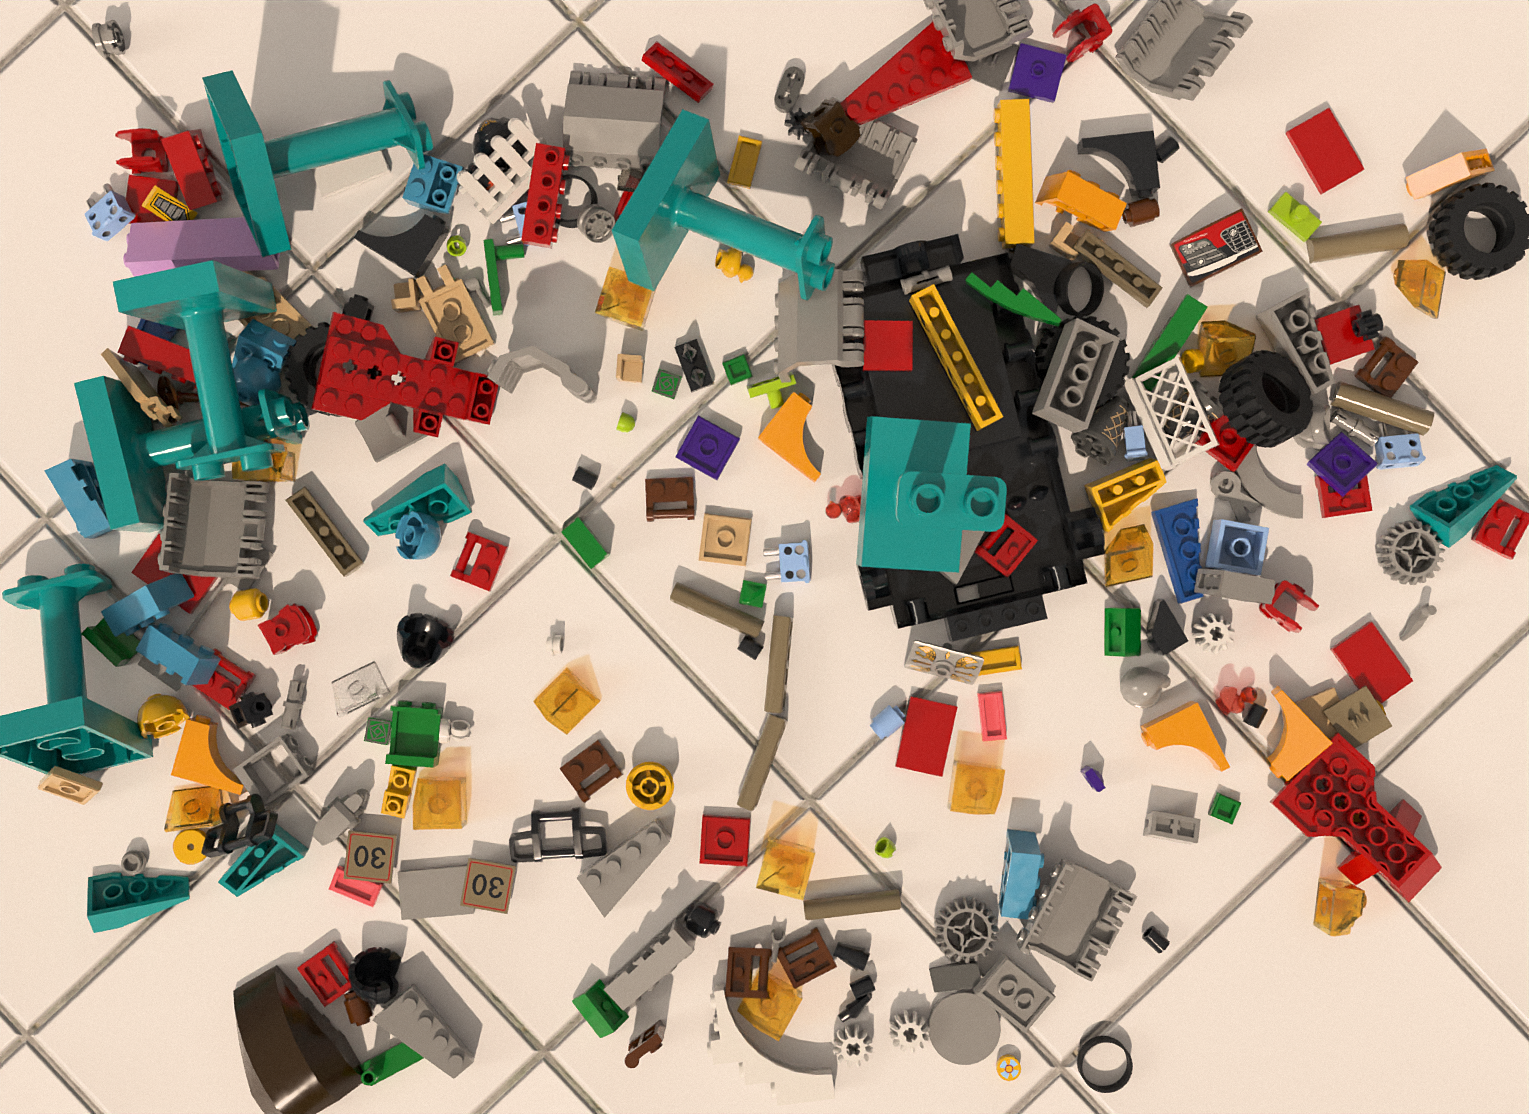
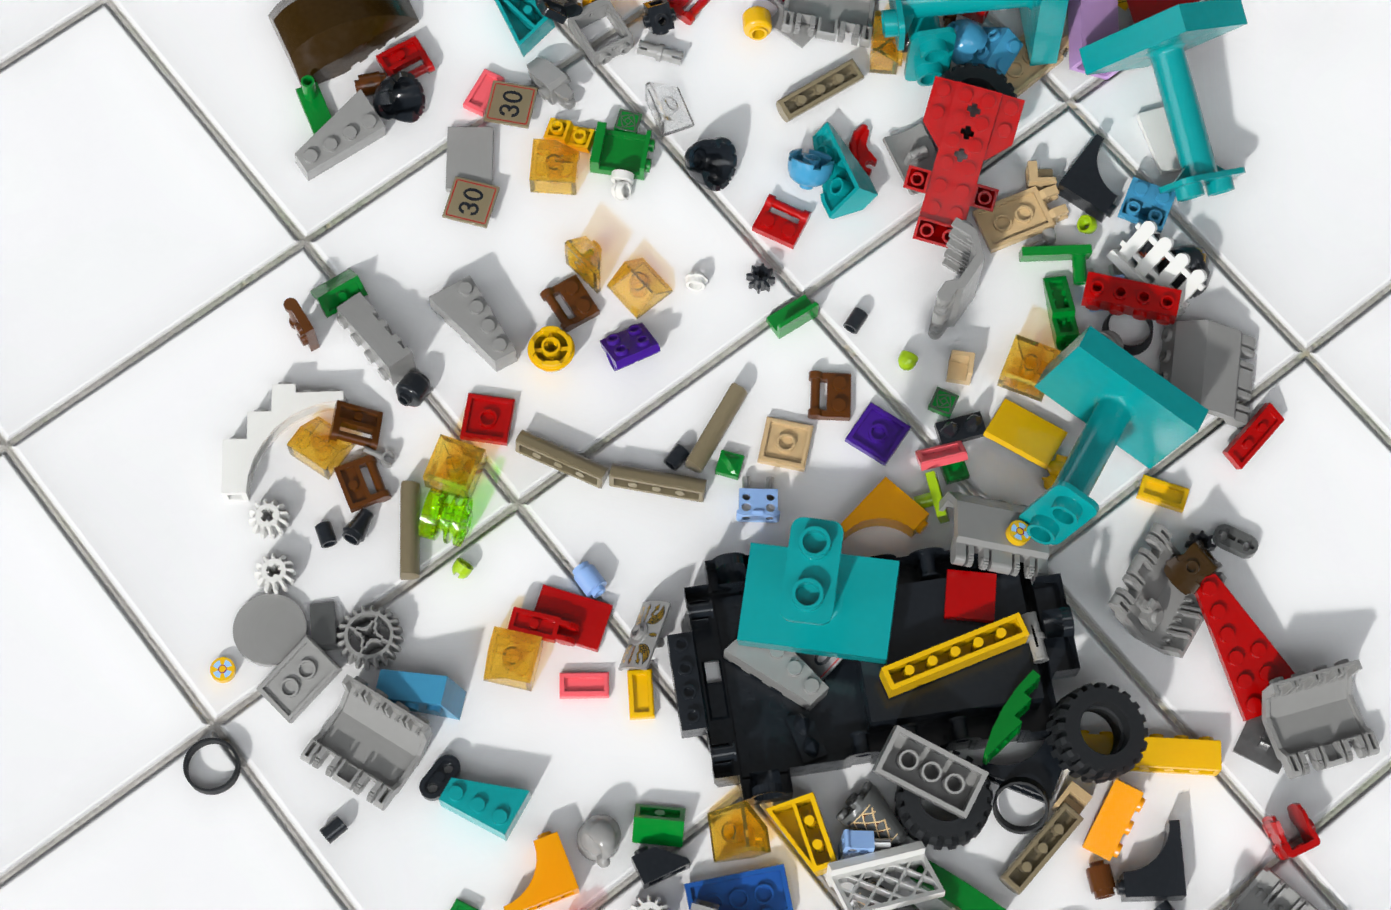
camera: 85 degrees right, 20 degrees down
(289, 628) = (731, 52): red piece -> none
(358, 307) = (1027, 135): black brick -> none
(389, 486) = (859, 149): none -> red piece
(542, 583) = (760, 285): none -> black gear
(543, 758) = (586, 260): none -> clear yellow slope
(566, 267) = (1060, 311): none -> green slope
(577, 830) = (508, 284): black bar -> none
(637, 705) = (629, 346): none -> dark purple plate
(695, 300) = (1025, 433): none -> yellow tile
(726, 383) = (941, 455): none -> coral tile
(824, 300) = (1017, 533): none -> yellow tile
(840, 877) = (448, 517): none -> clear neon green wheel
(854, 1008) = (306, 526): black bar -> none
(876, 169) = (1150, 614): none -> light grey plate
(942, 765) = (542, 625): none -> red hinge
(1011, 551) = (752, 715): red plate -> none
(1025, 189) = (1123, 720): none -> black tyre
(1037, 73) = (1250, 788): dark purple plate -> none
(1094, 778) = (510, 777): dark purple tile -> none
(1096, 844) = (439, 778): none -> black plate
(1122, 799) = (486, 804): none -> teal wedge
(1172, 827) = (449, 854): light grey hinge -> none

